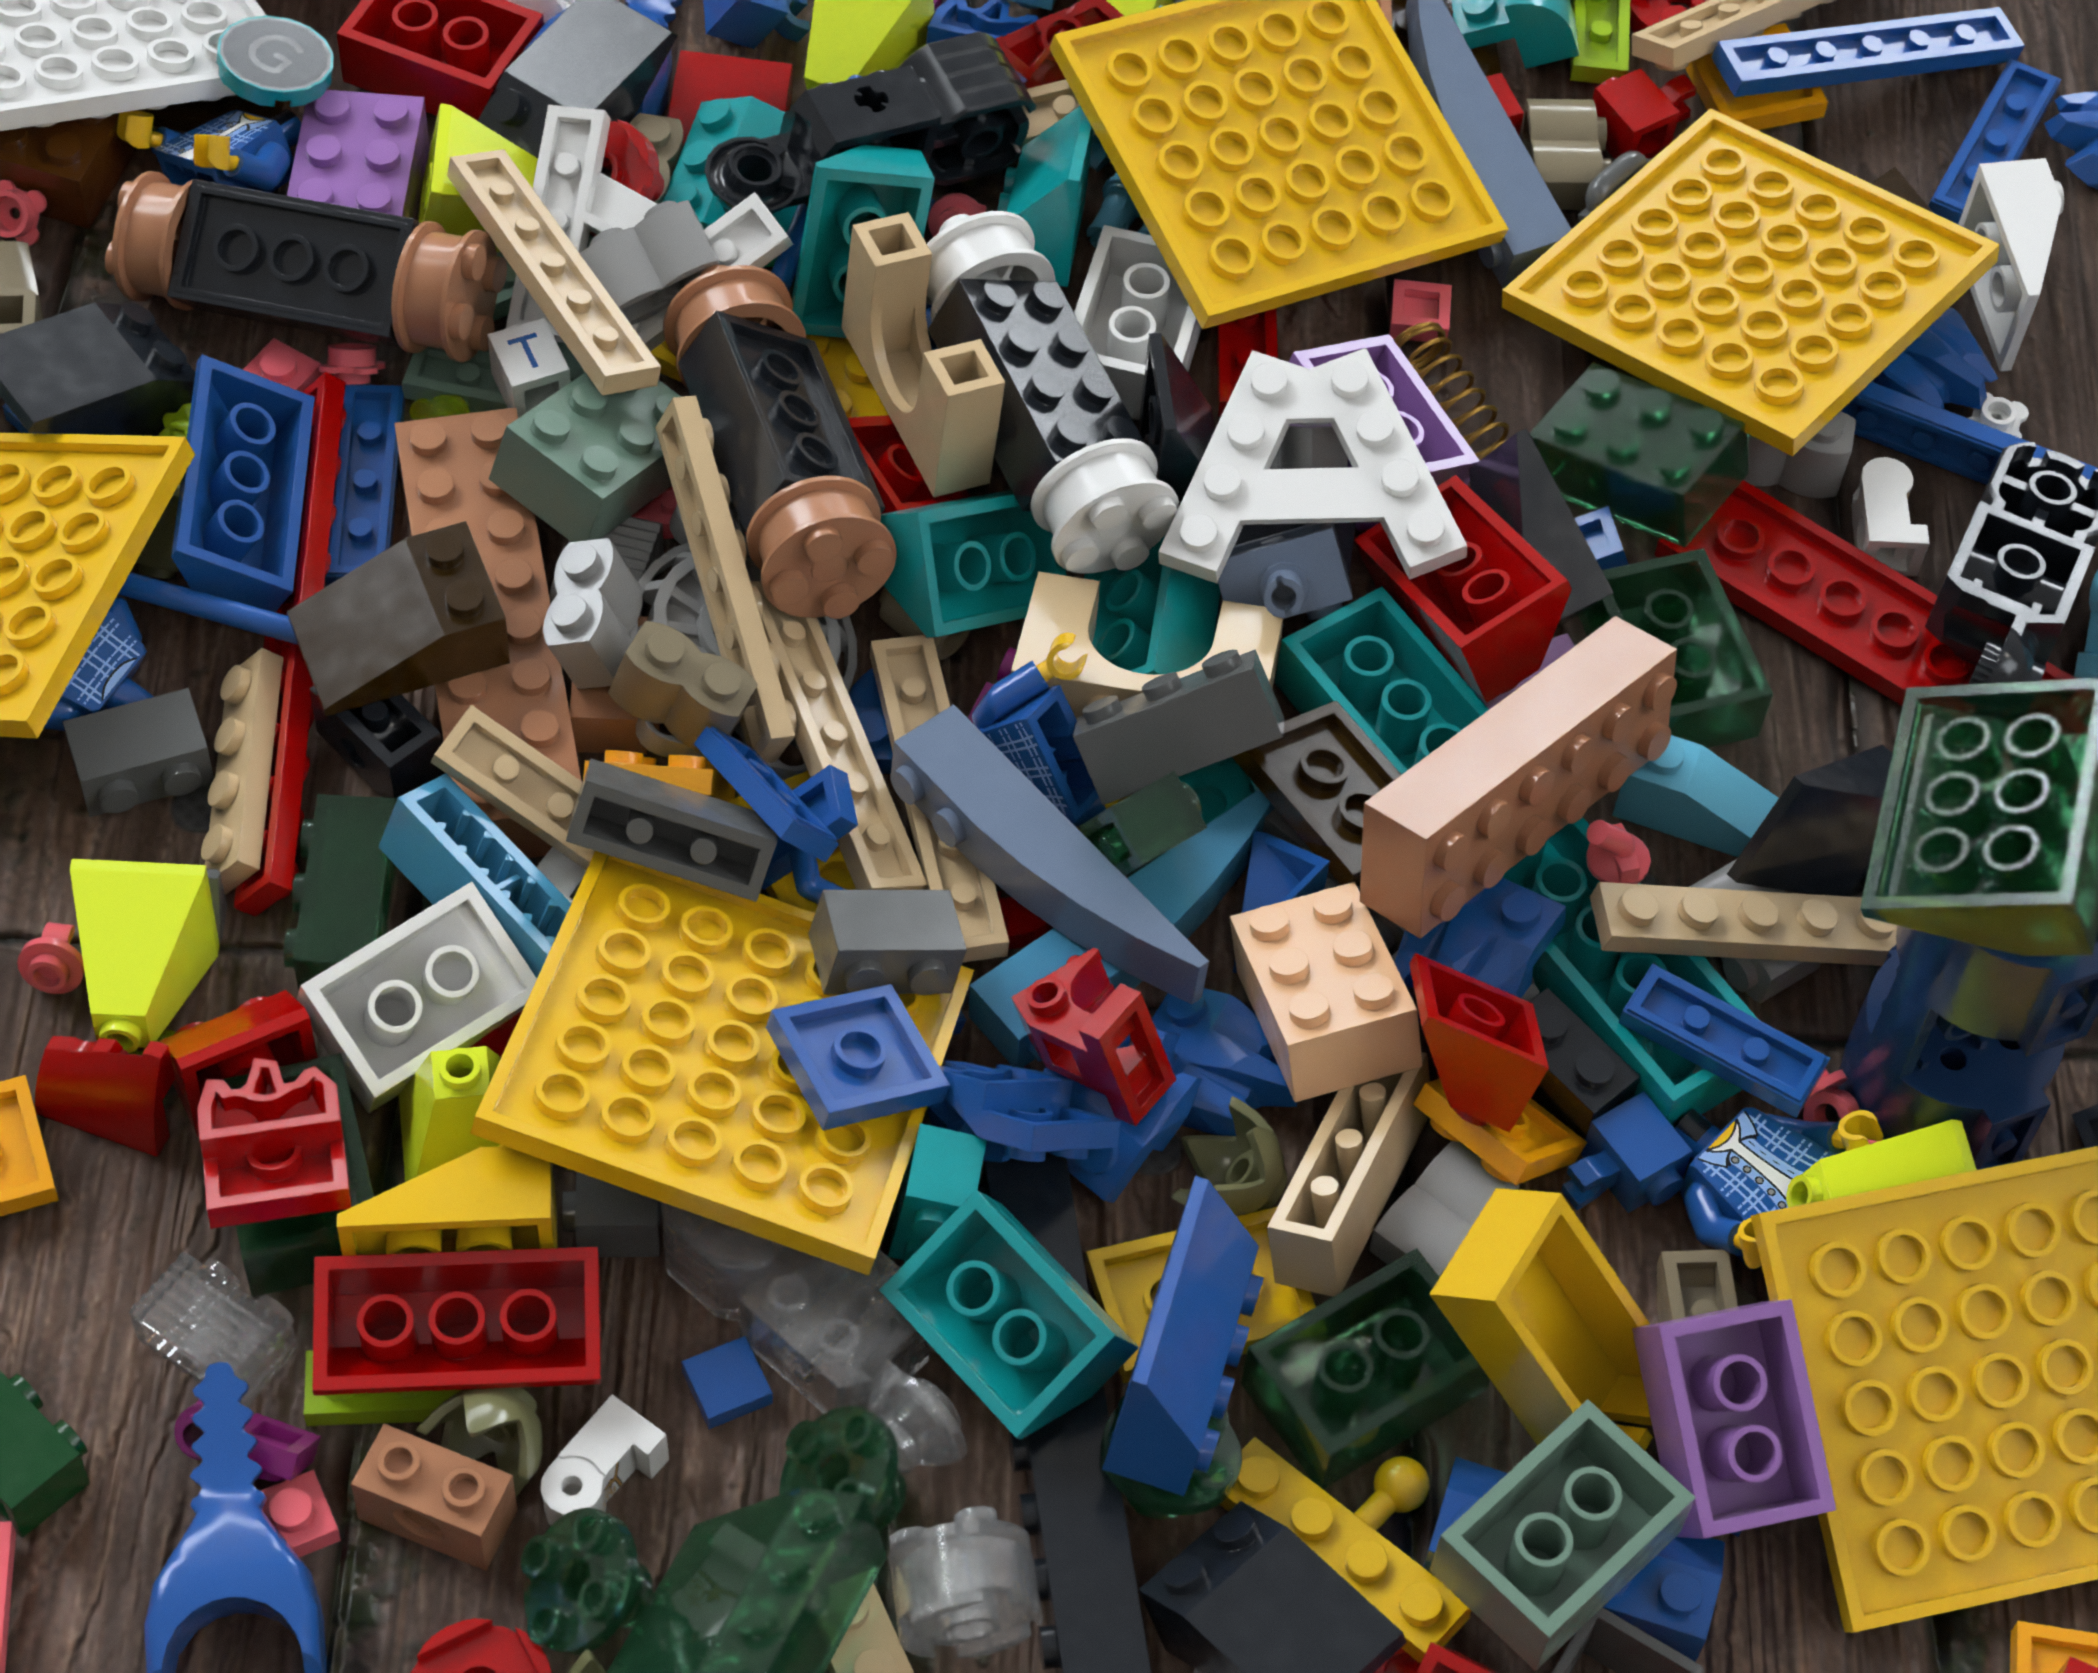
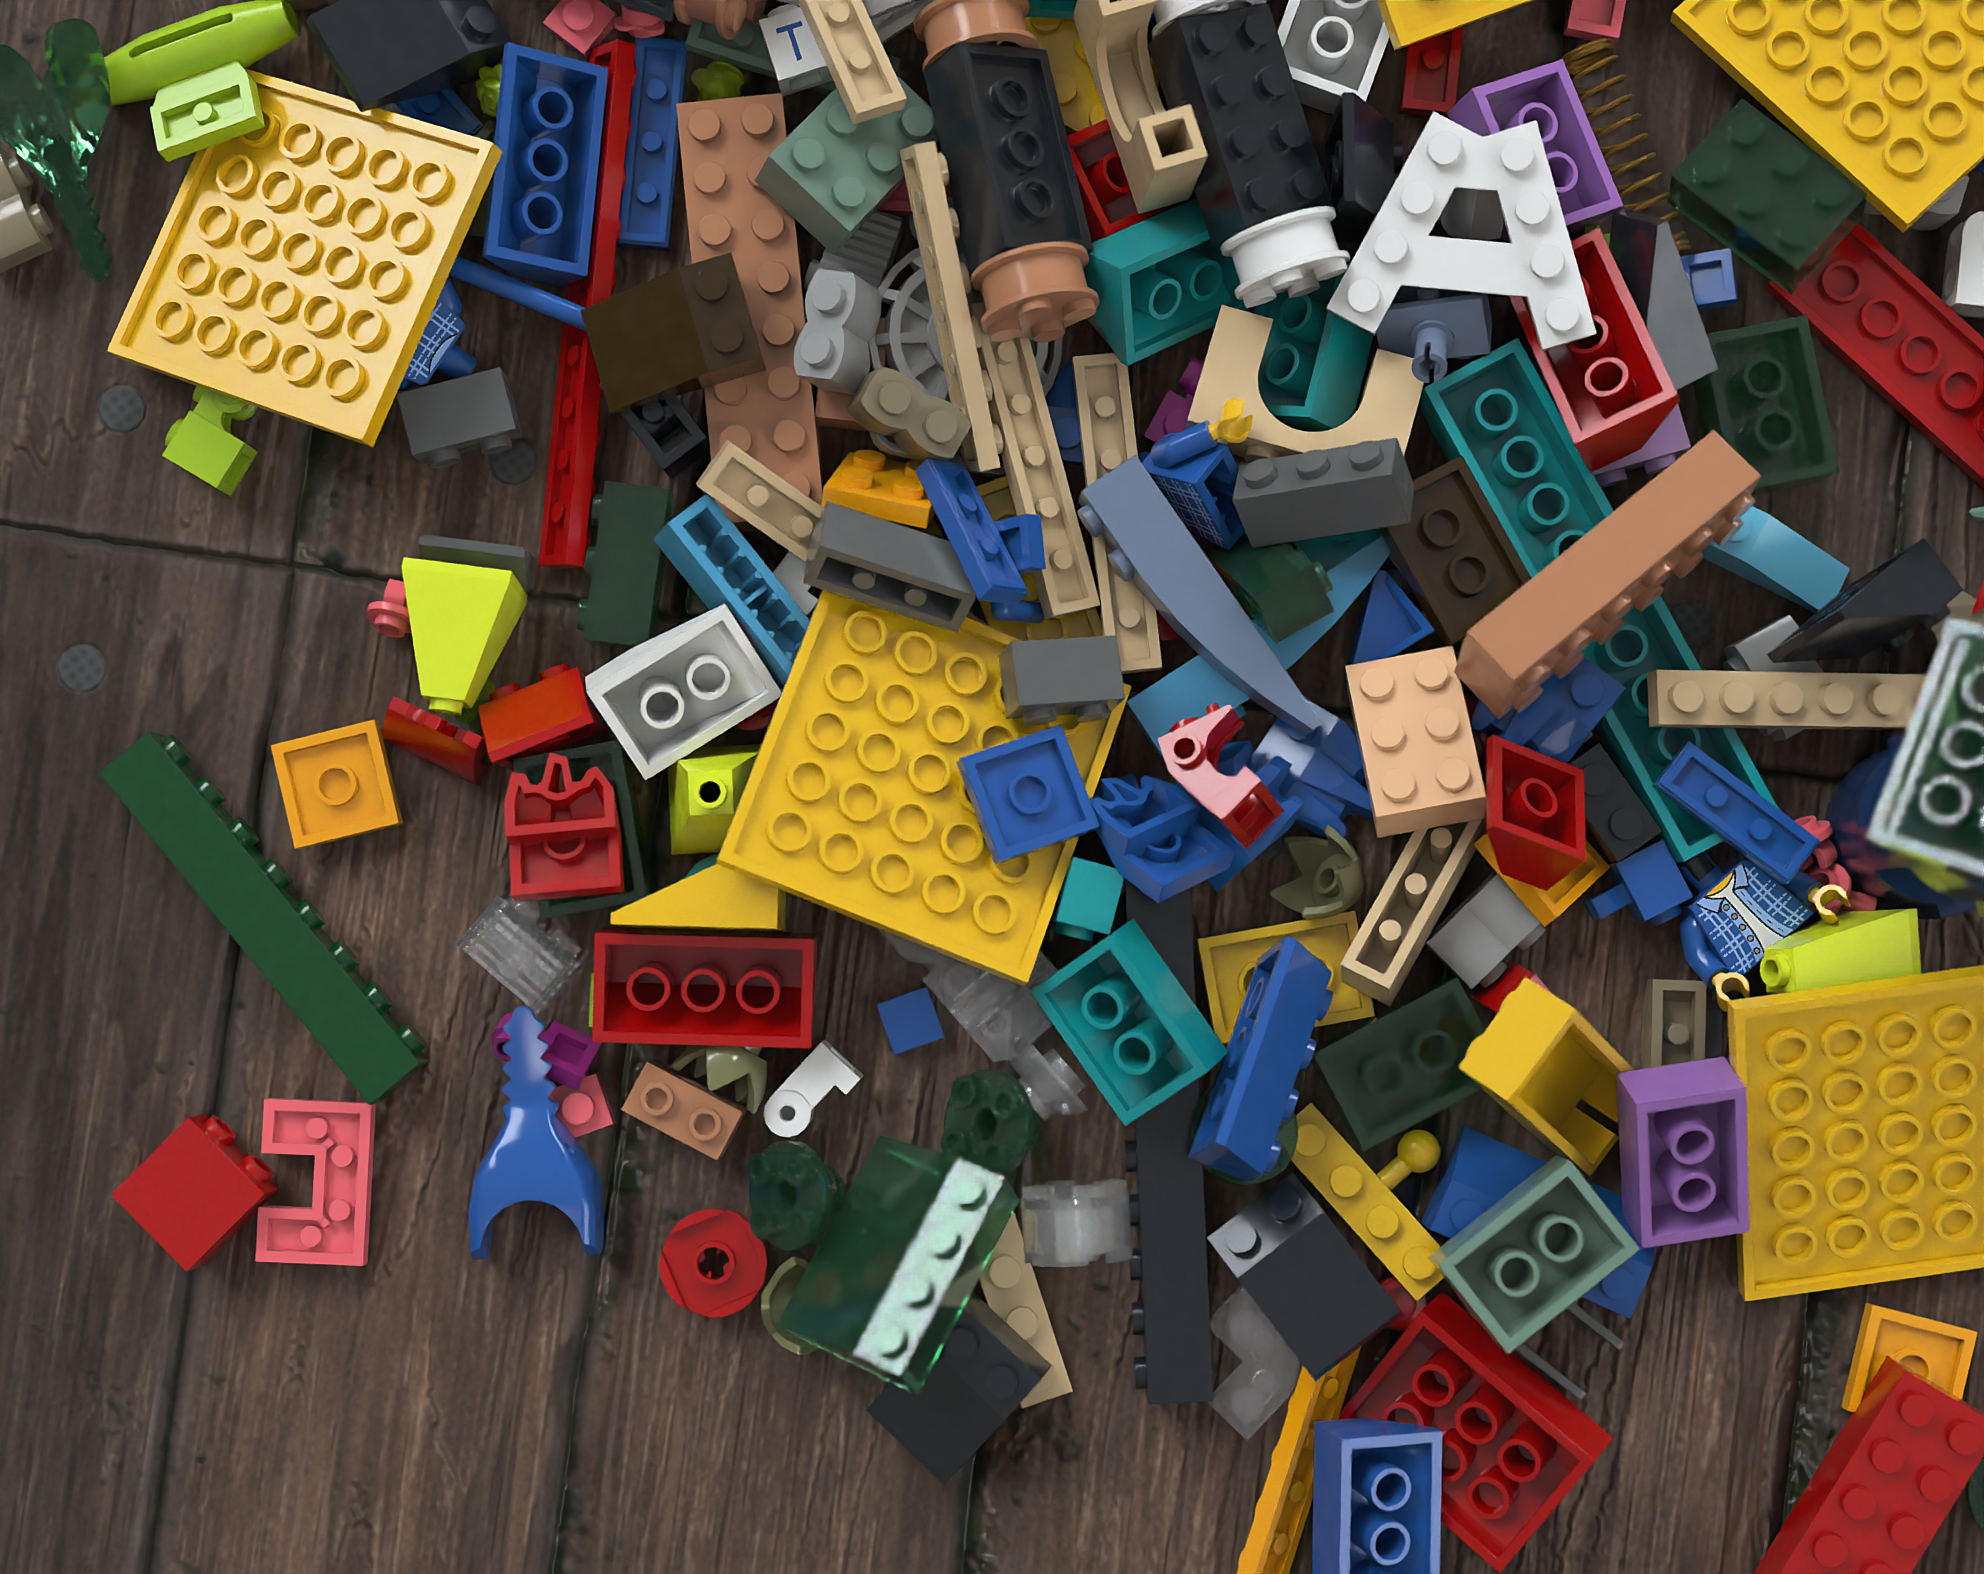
camera: 10 degrees right, 30 degrees up
(243, 768) = (546, 439): tan plate -> none
(1616, 854) = (1677, 635): coral plate -> none

